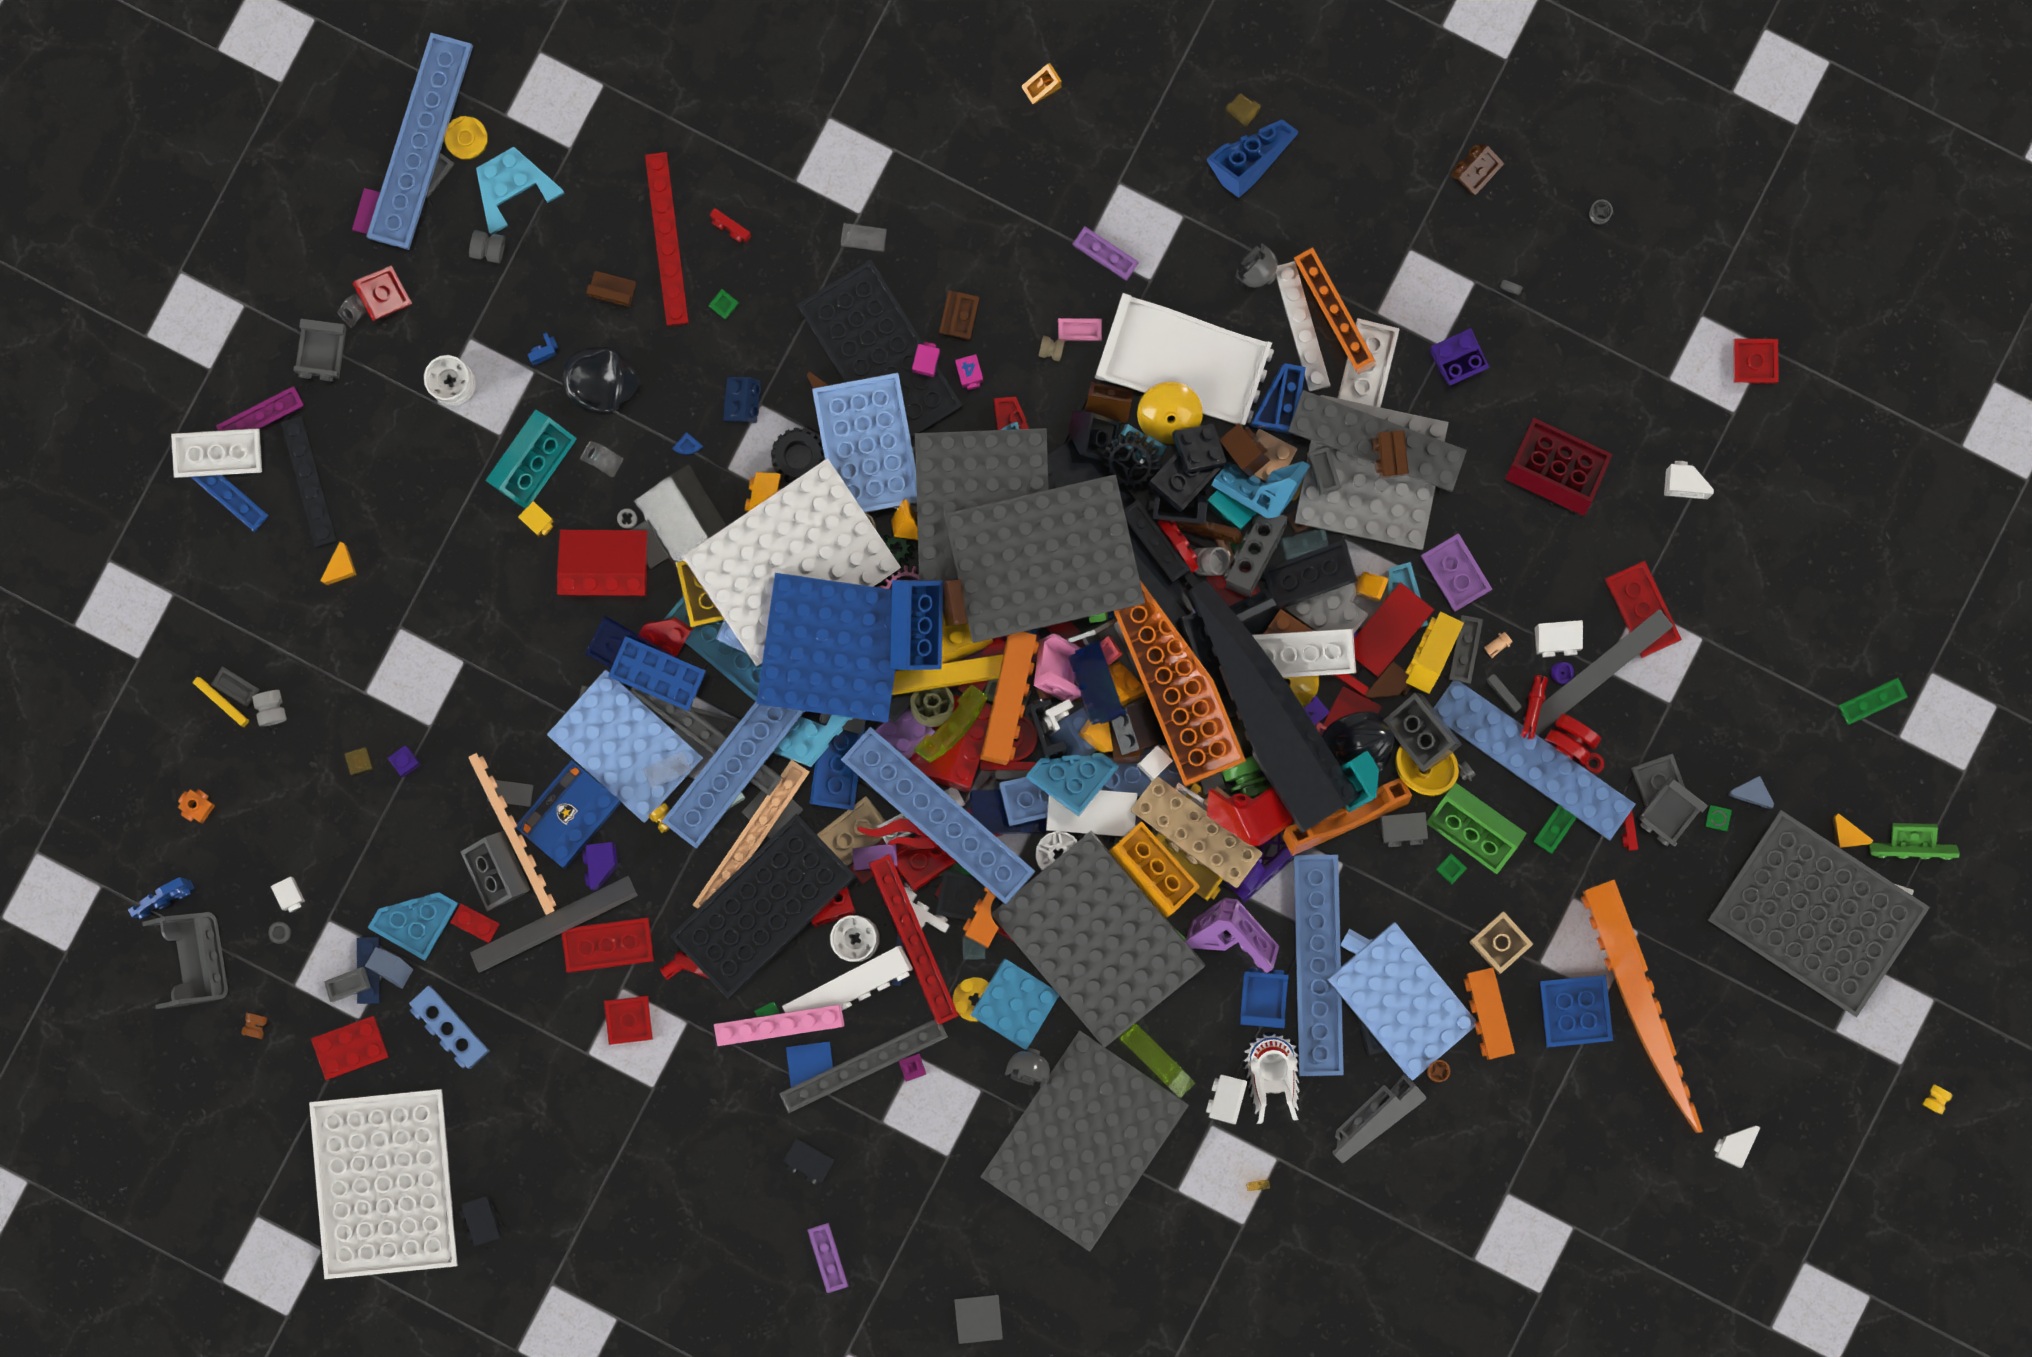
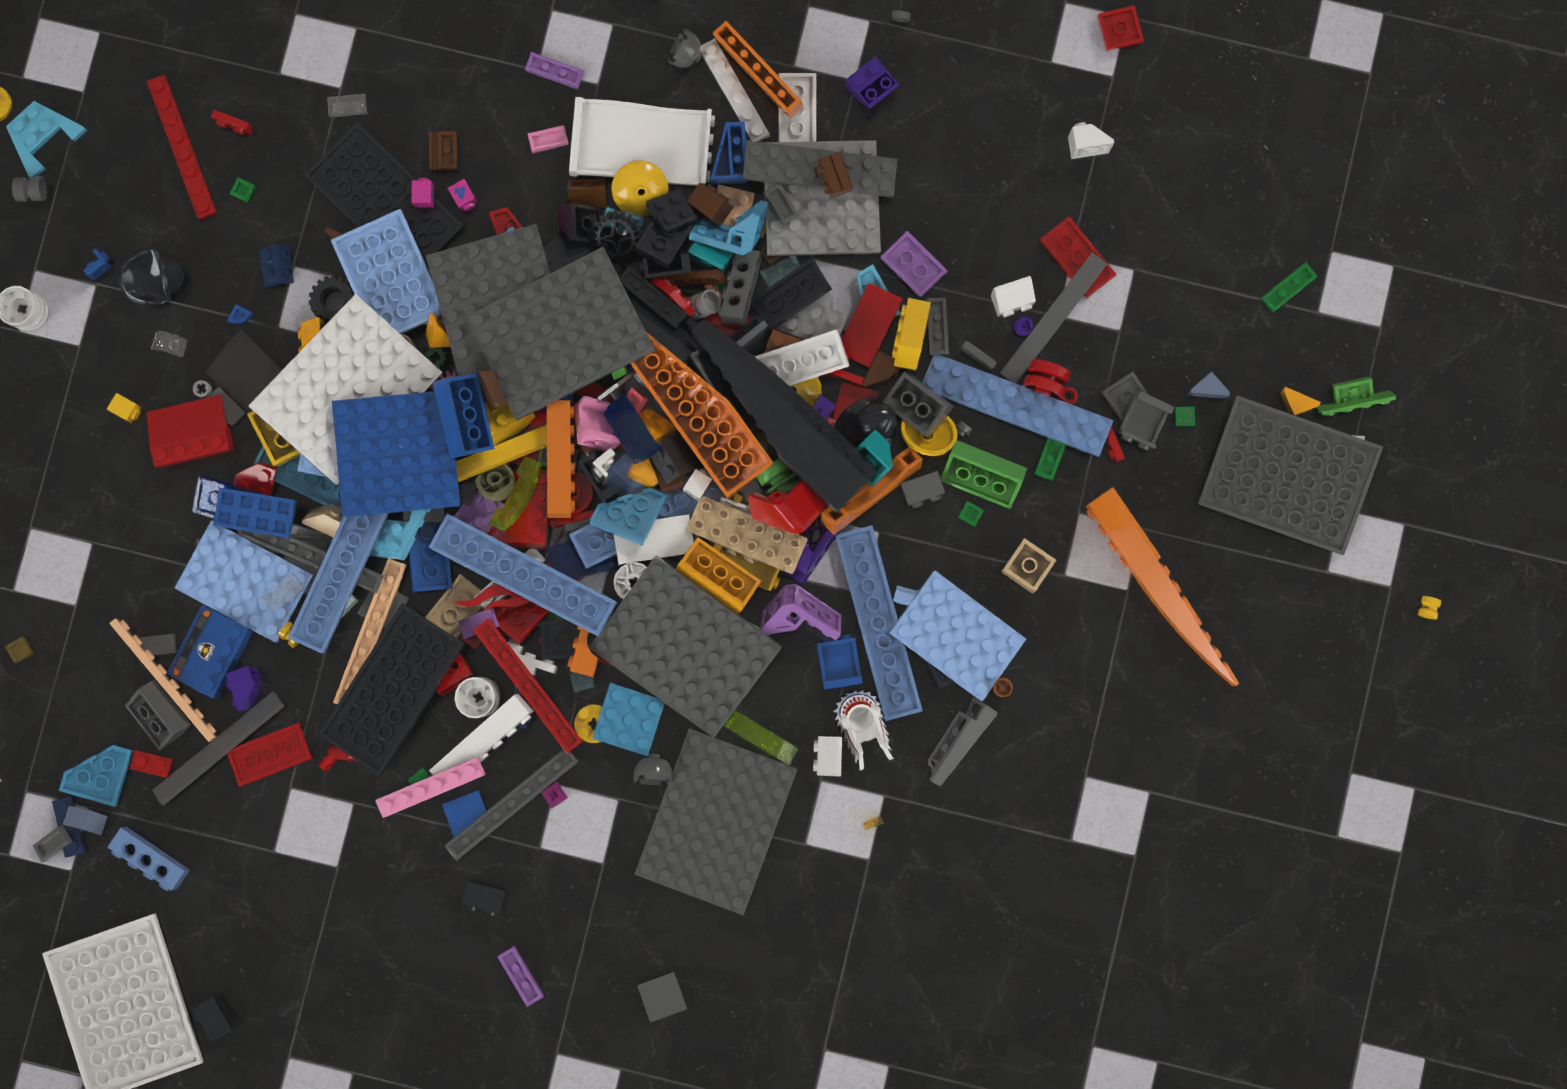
camera: 15 degrees left, 0 degrees up
(349, 1048) = (68, 897): red plate -> none
(404, 761) = (57, 640): dark purple brick -> none
(531, 459) = (108, 358): teal slope -> none
(611, 288) = (144, 200): reddish brown panel -> none
(628, 1020) = (302, 814): red tile -> none
(732, 699) = (324, 519): none -> tan slope
(1050, 348) = (525, 159): dark tan wheel -> none
(1370, 586) = (844, 292): light orange slope -> none
(1490, 1013) = (1034, 628): orange brick -> none
(1498, 644) = (966, 312): light nougat pin -> none
(1535, 699) = (1007, 353): red pin -> none
(1558, 466) = (978, 155): dark red slope -> none
(1576, 1011) = (1106, 608): blue plate -> none
(1736, 1146) = (1270, 689): white slope -> none

